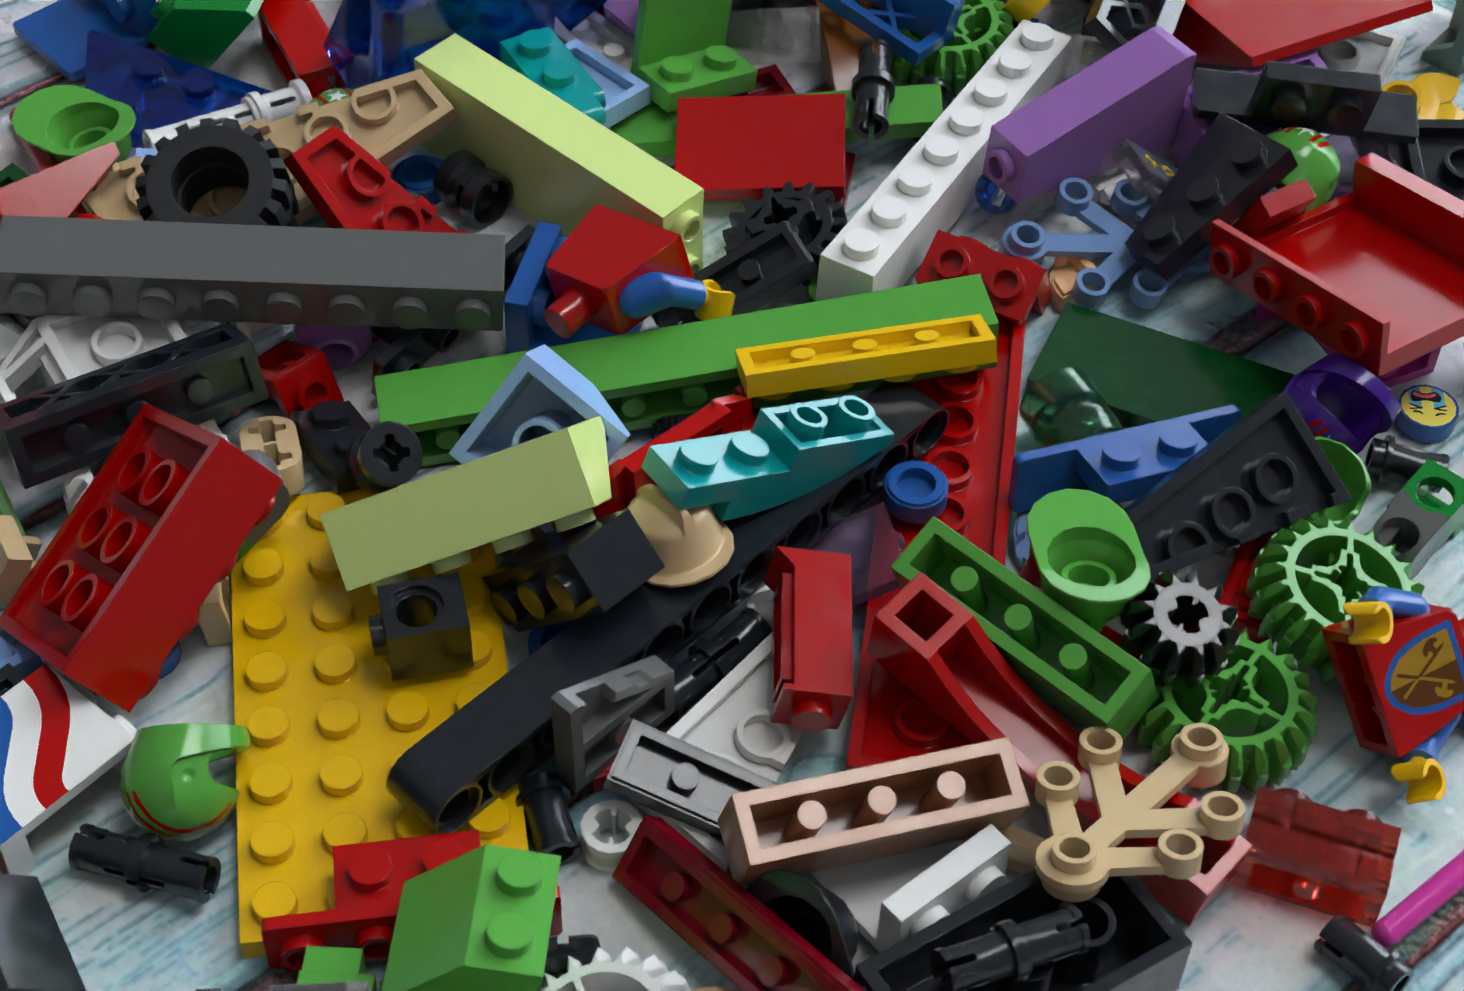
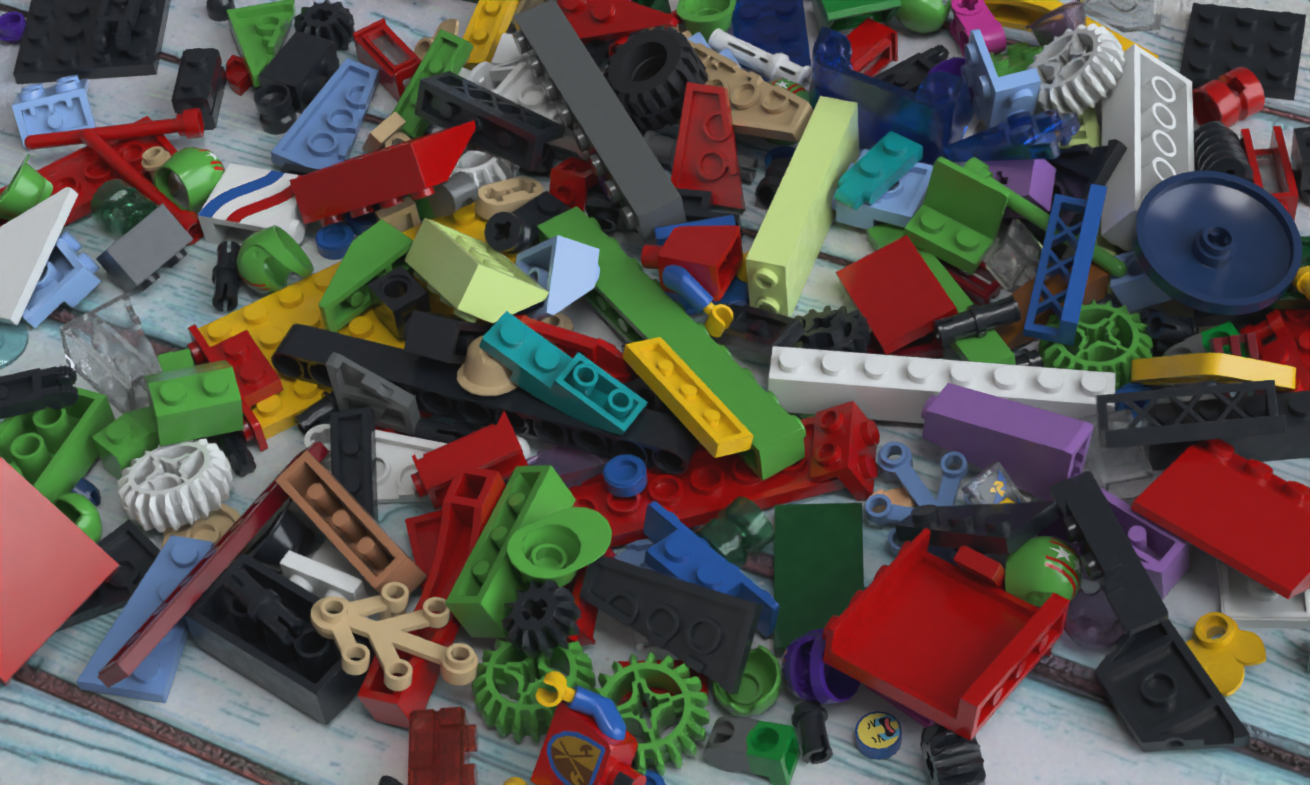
camera: 75 degrees right, 0 degrees up
(173, 700) = (334, 240): none -> blue tile
(325, 648) = (366, 260): none -> bright green slope

